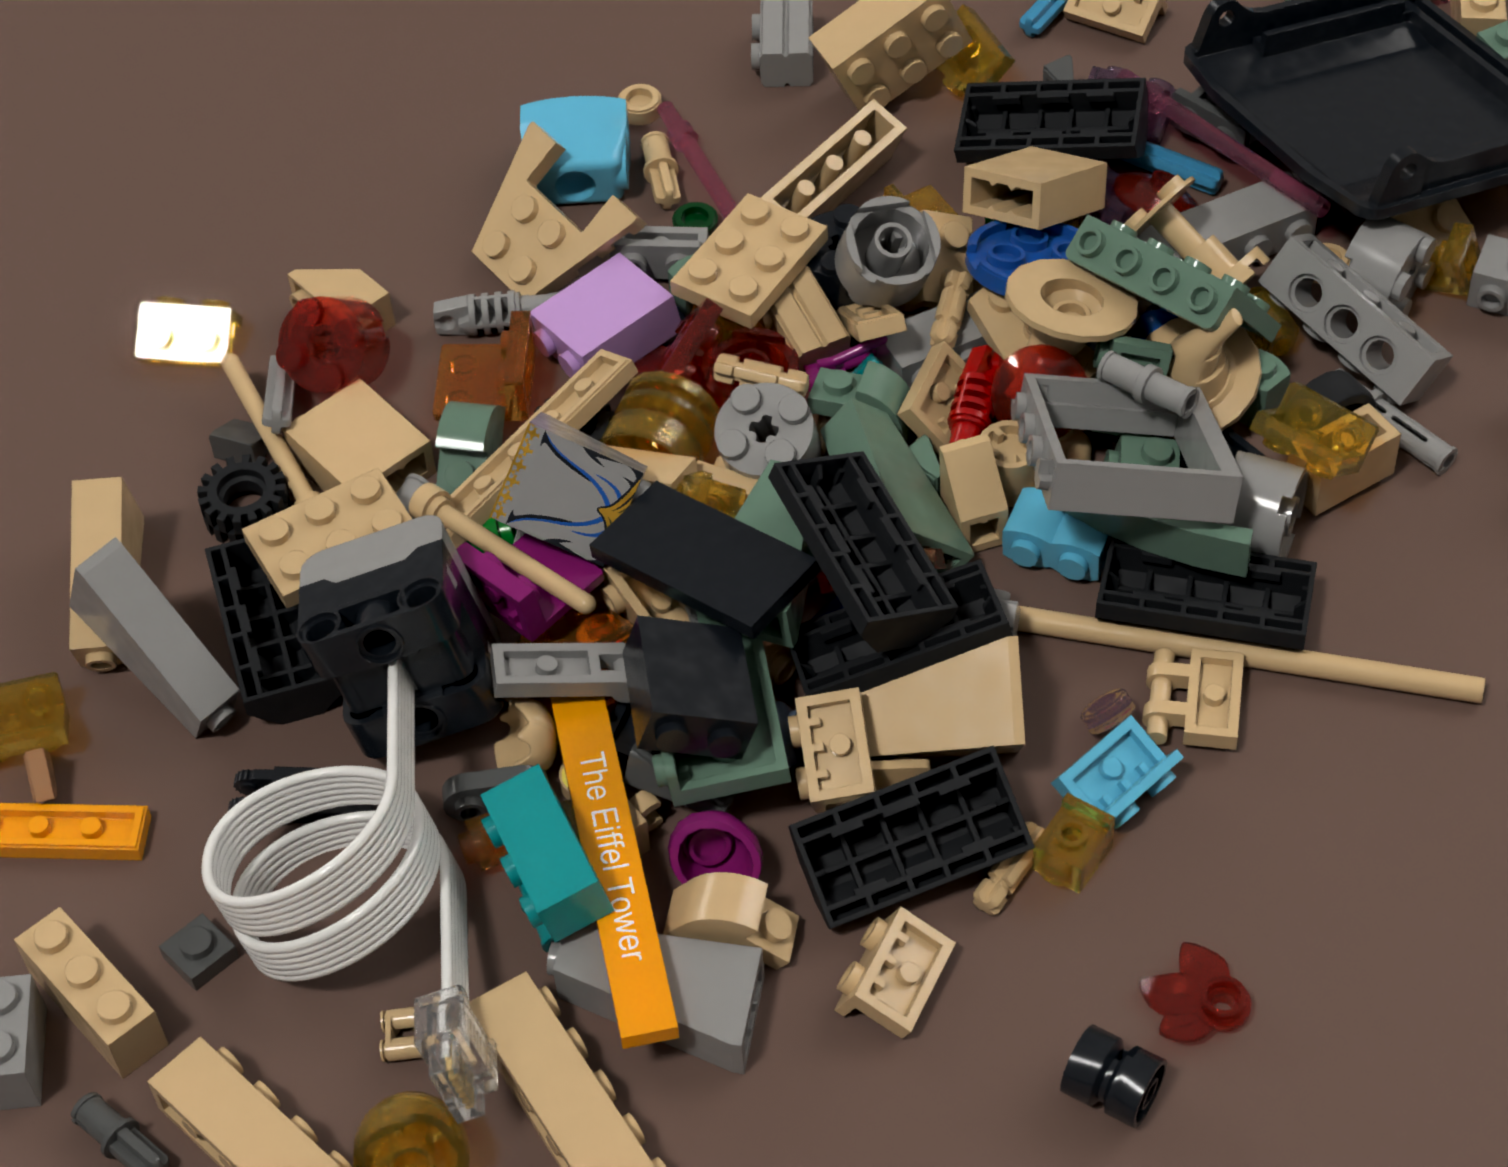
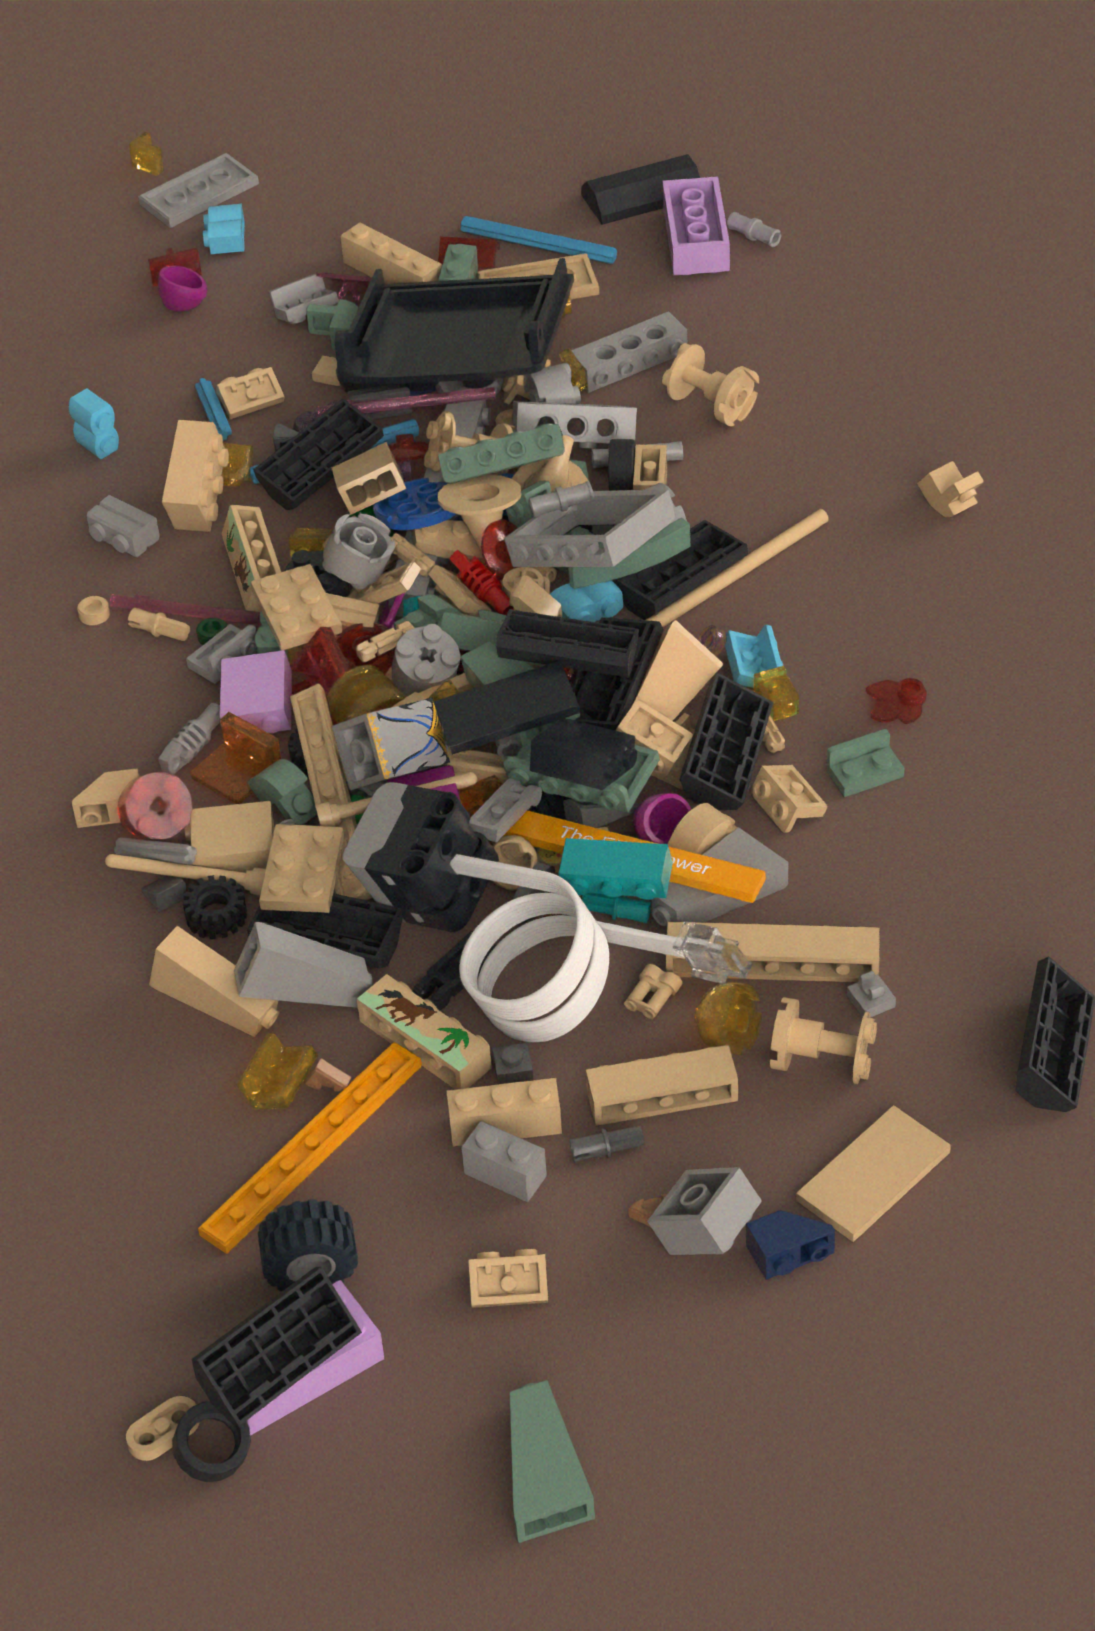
camera: 55 degrees left, 5 degrees down
(175, 817) = (425, 1031): none -> tan brick
(185, 333) = (54, 877): bracket -> none
(530, 238) = (161, 695): tan wing -> none
(595, 143) = (108, 647): medium azure piece -> none
(1029, 1025) = (863, 763): none -> sand green bracket
(1116, 1077) = (921, 745): black wheel -> none
(1212, 697) = (735, 601): tan plate -> none
(1317, 431) = (644, 463): clear yellow bracket -> none

